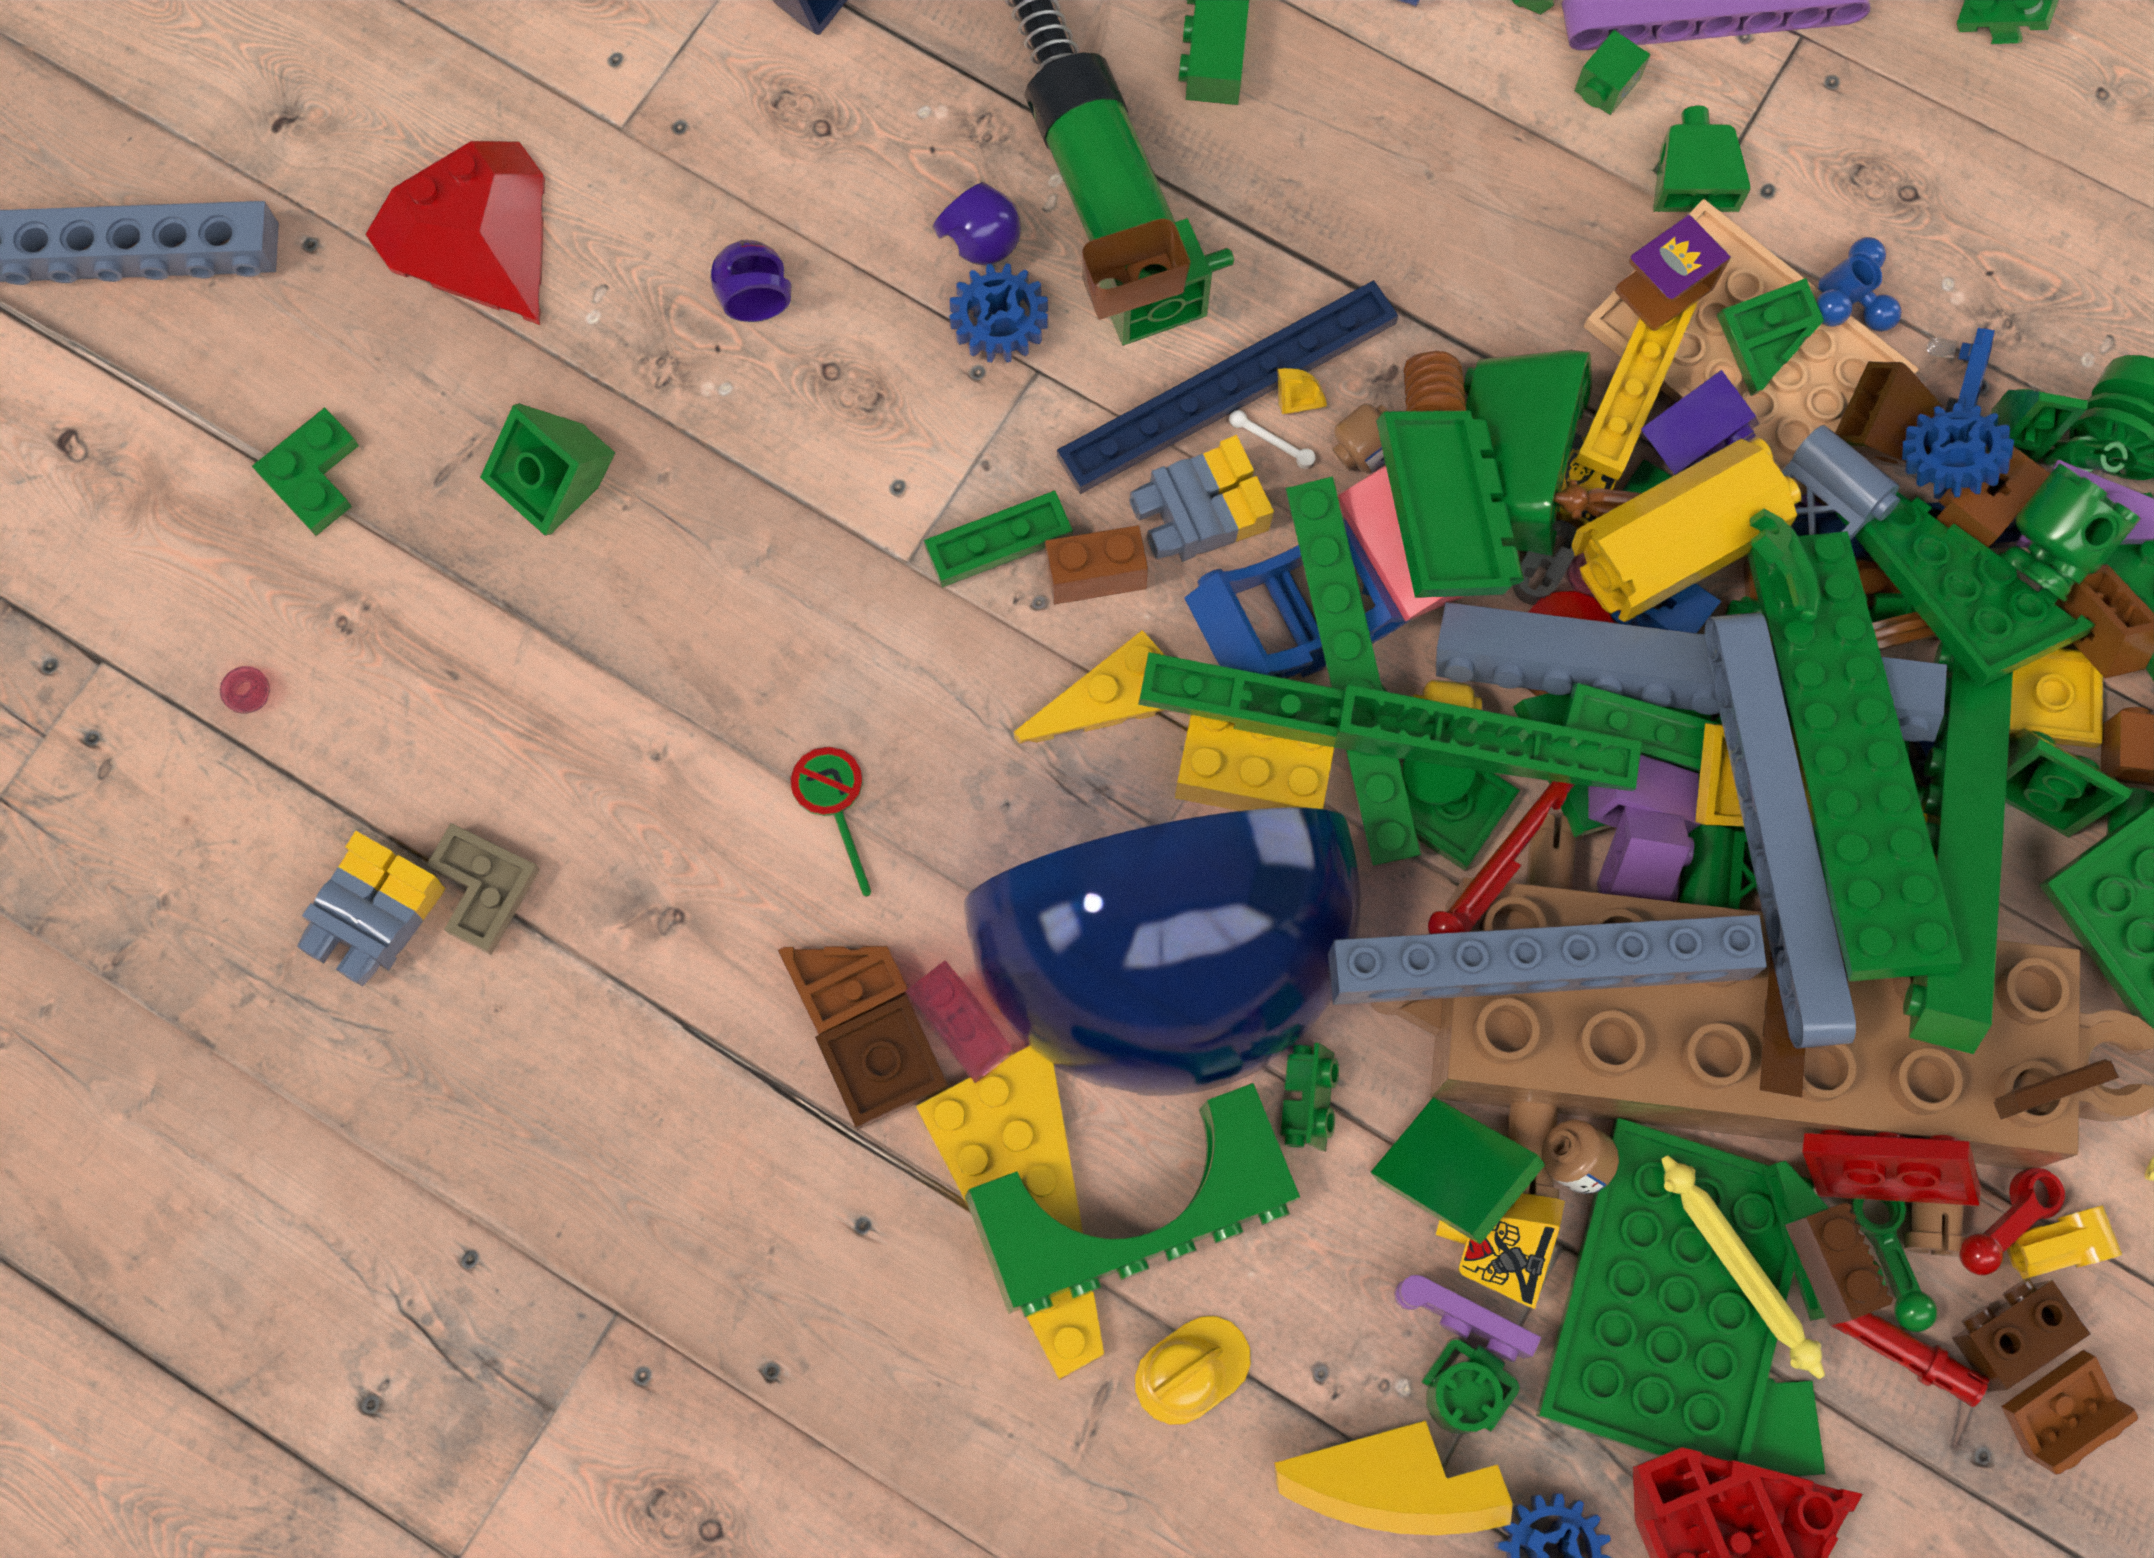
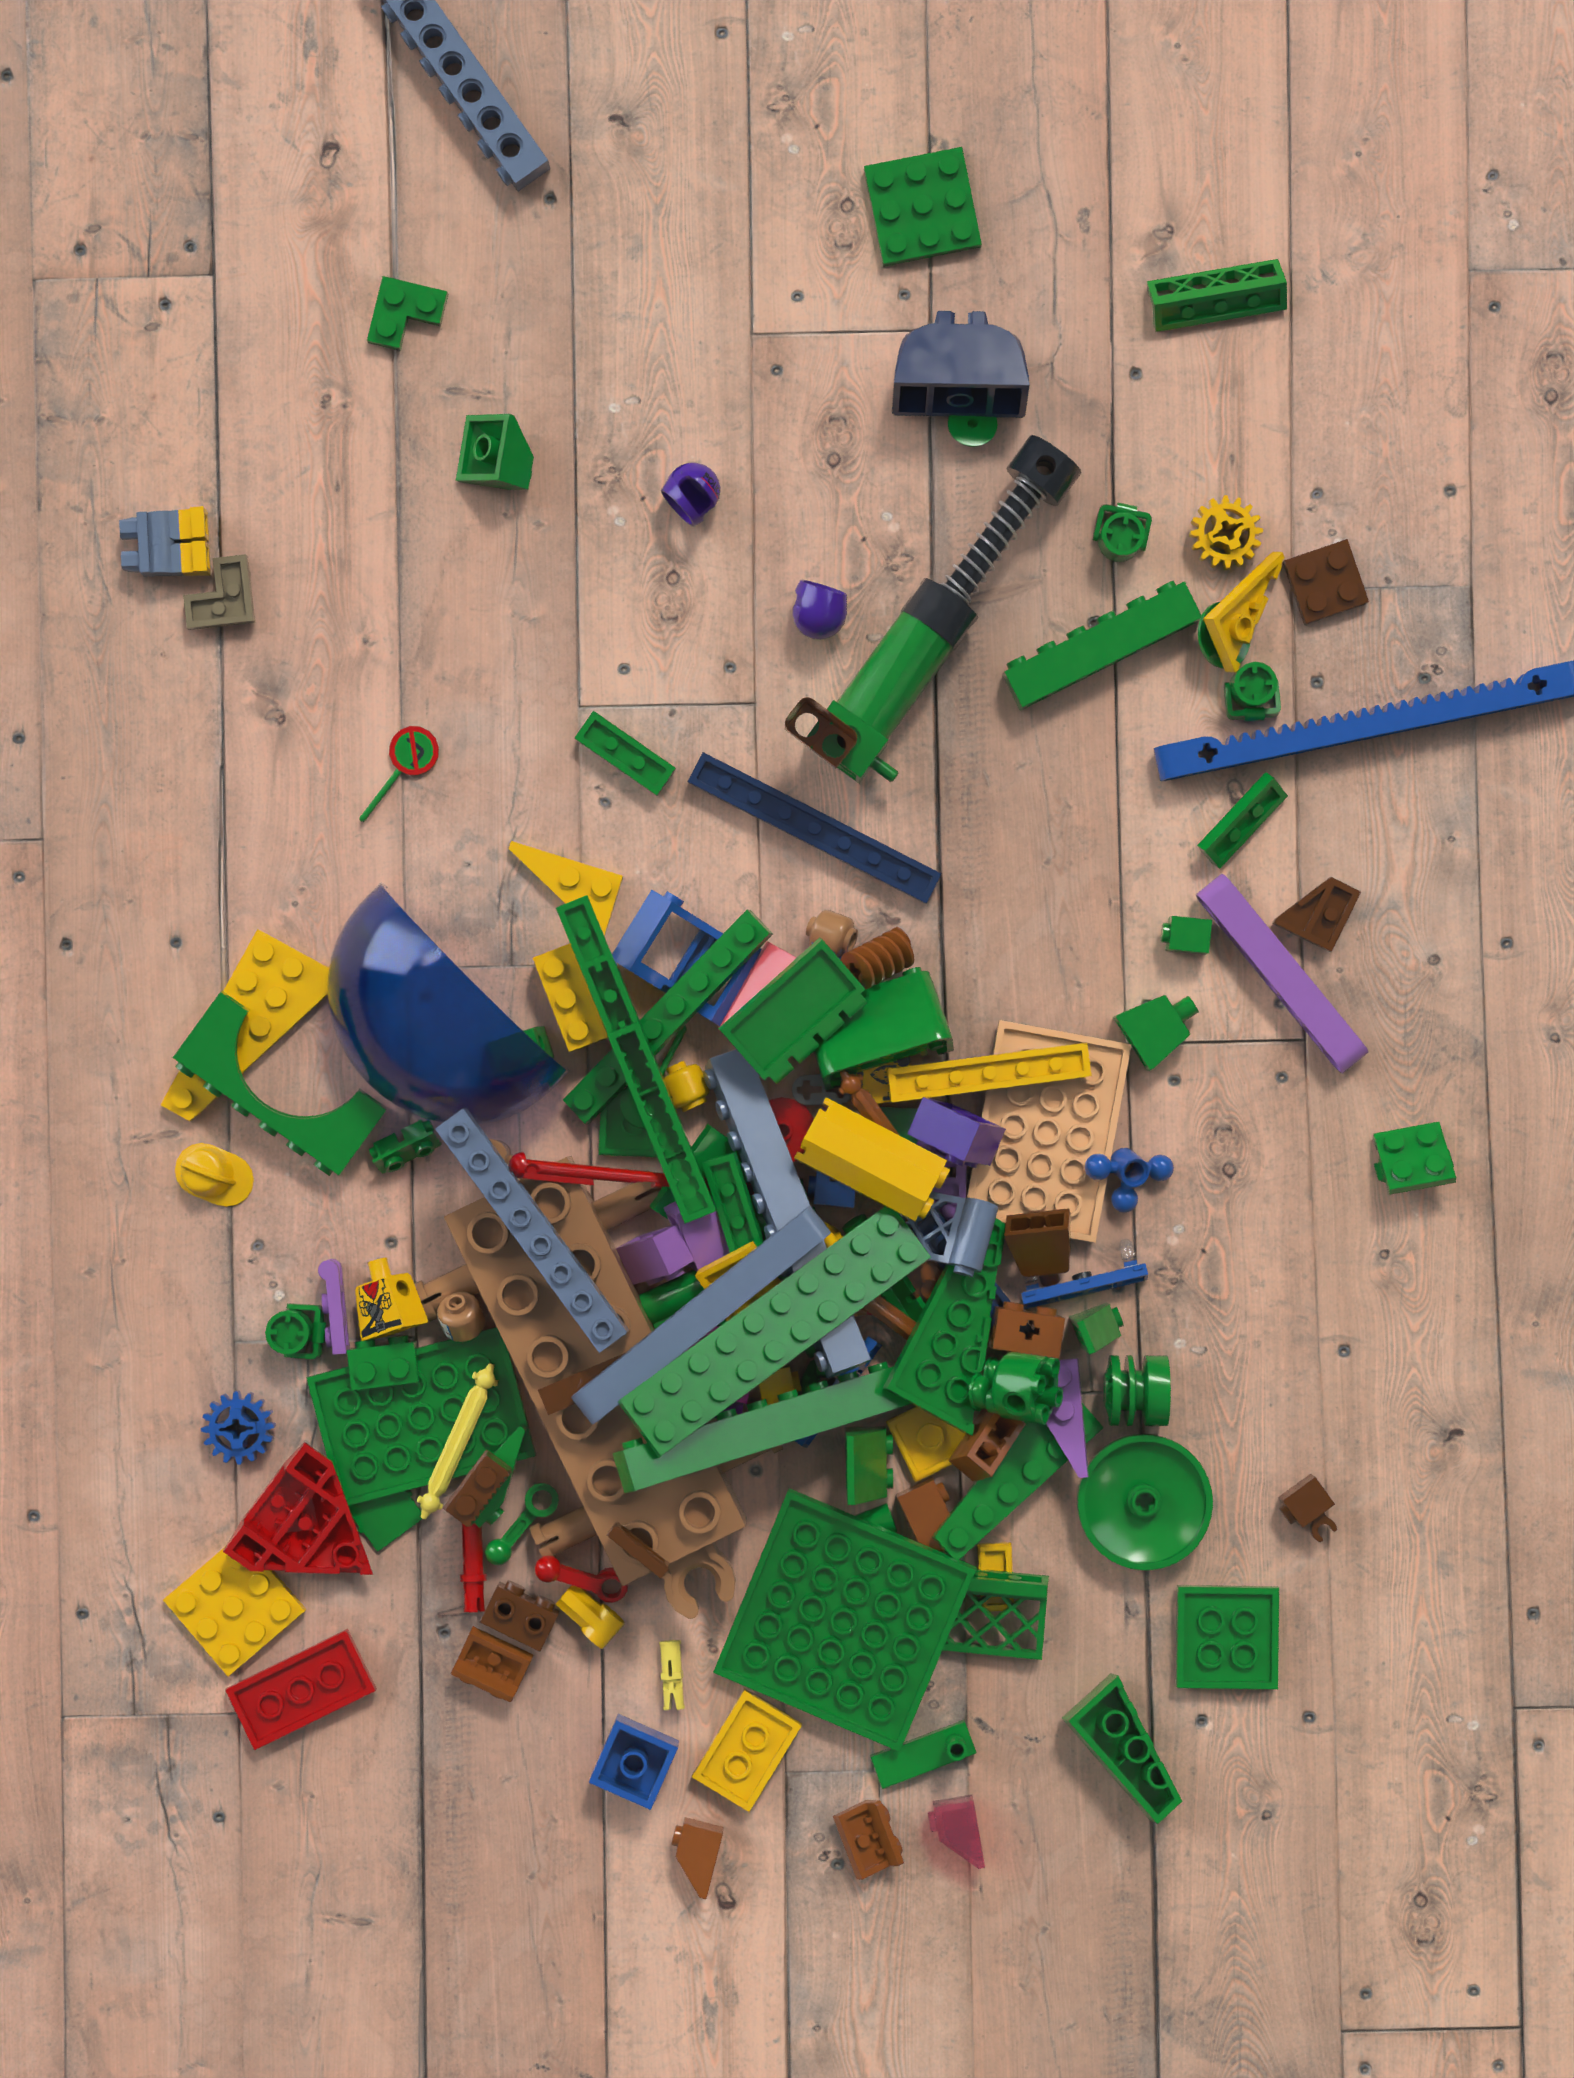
camera: 60 degrees right, 15 degrees up
(251, 700) = (254, 382): clear pink plate -> none
(470, 226) = (621, 295): red wedge -> none
(843, 982) = (300, 840): dark orange wing -> none
(881, 1062) = (269, 893): reddish brown plate -> none
(959, 1021) = (317, 923): clear pink slope -> none
(1002, 330) = (787, 657): blue gear -> none
(1096, 564) = (643, 823): dark orange brick -> none
(1203, 502) = (721, 850): sand blue hips -> none
(1298, 391) = (838, 874): yellow tile -> none
(1304, 458) = (799, 847): white hinge -> none
(1395, 1486) = (217, 1321): yellow slope -> none
(1457, 1169) = (407, 1252): green tile -> none
(1580, 1299) = (383, 1364): none -> green bracket
(1672, 273) = (1041, 1056): piece -> none
(1769, 330) = (1056, 1137): green wing -> none
(1781, 545) = (877, 1234): green piece -> none
(1892, 1167) = (556, 1487): red plate -> none
(1957, 450) = (1043, 1297): blue gear -> none
(2087, 453) = (1092, 1373): green pin -> none

